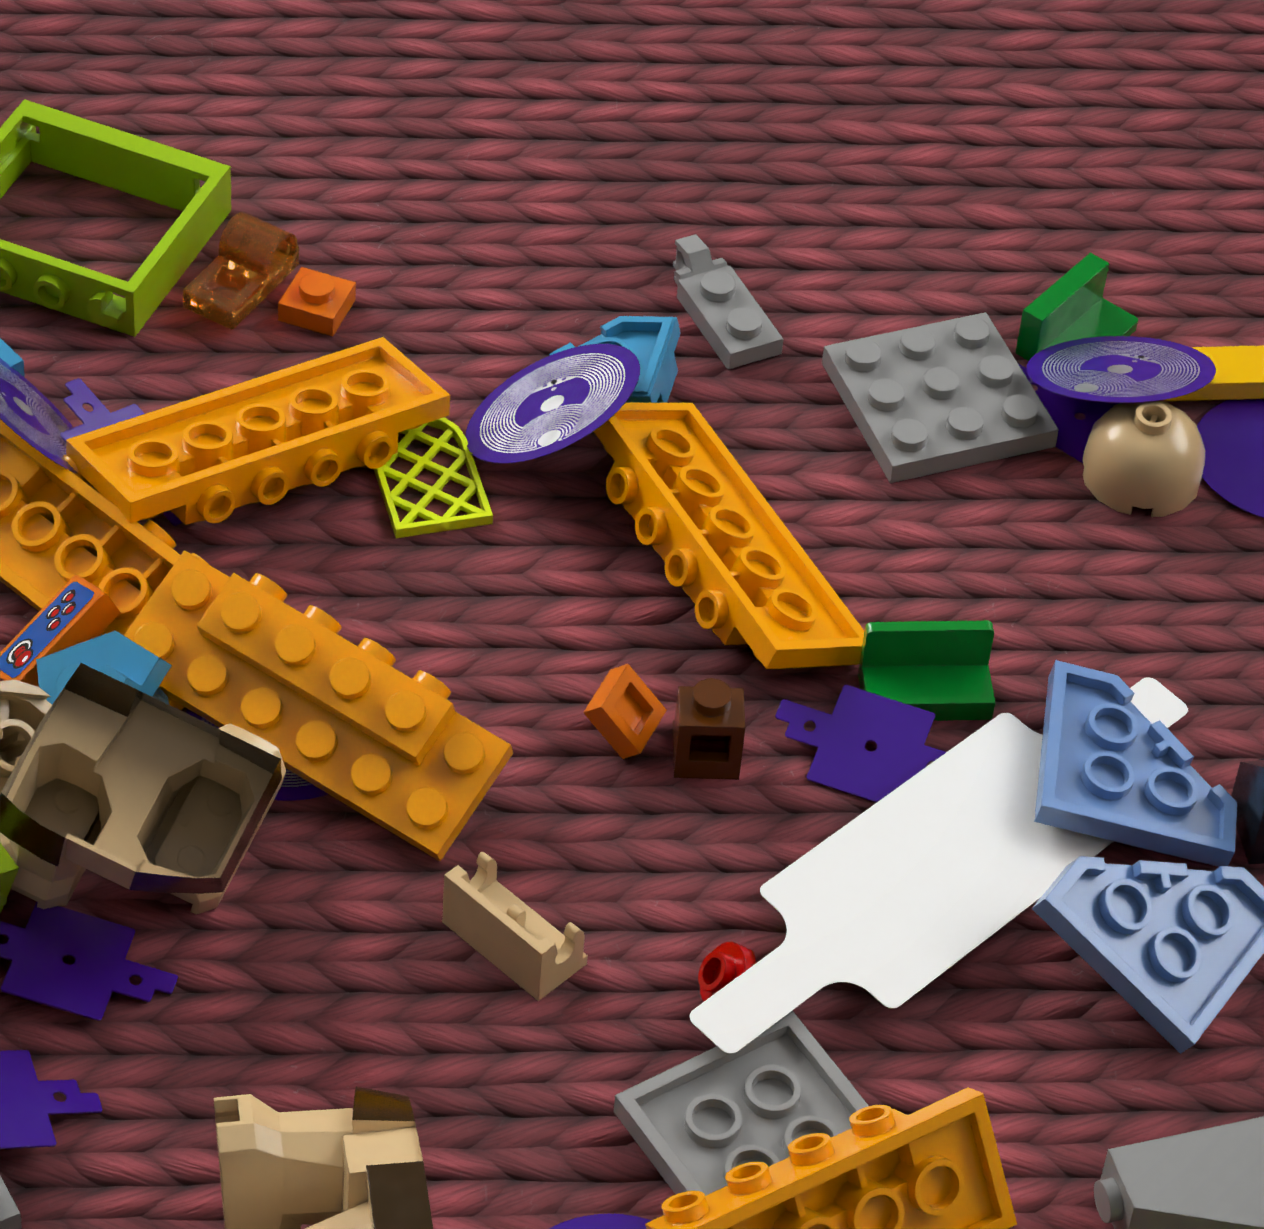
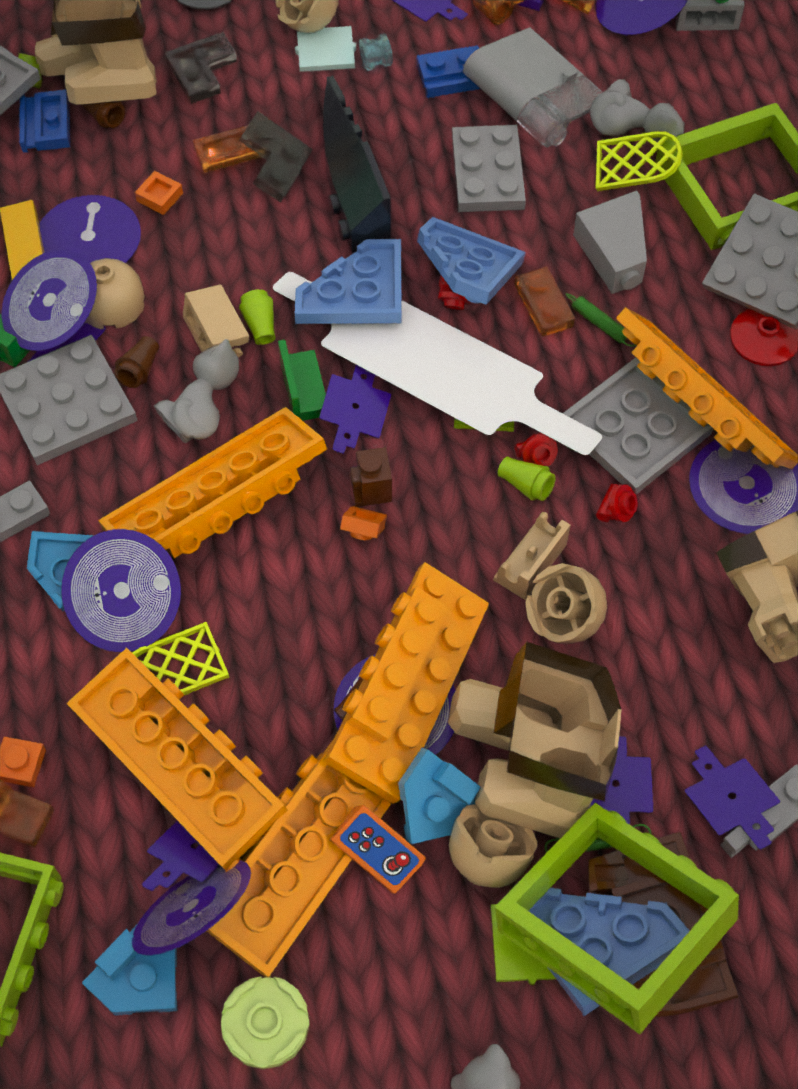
camera: 95 degrees left, 15 degrees up
(391, 936) = (566, 604): none -> tan cylinder
(594, 1075) = (618, 504): none -> red plate
(671, 952) = (529, 478): none -> lime cone
(870, 523) = (194, 411): none -> light grey animal
(994, 477) = (135, 365): none -> reddish brown cone
(1042, 1135) = (599, 318): none -> bright green piece
(1059, 570) = (213, 319): none -> tan hinge
(1078, 638) = (259, 315): none -> lime cone
(1080, 1065) = (544, 301): none -> clear orange plate

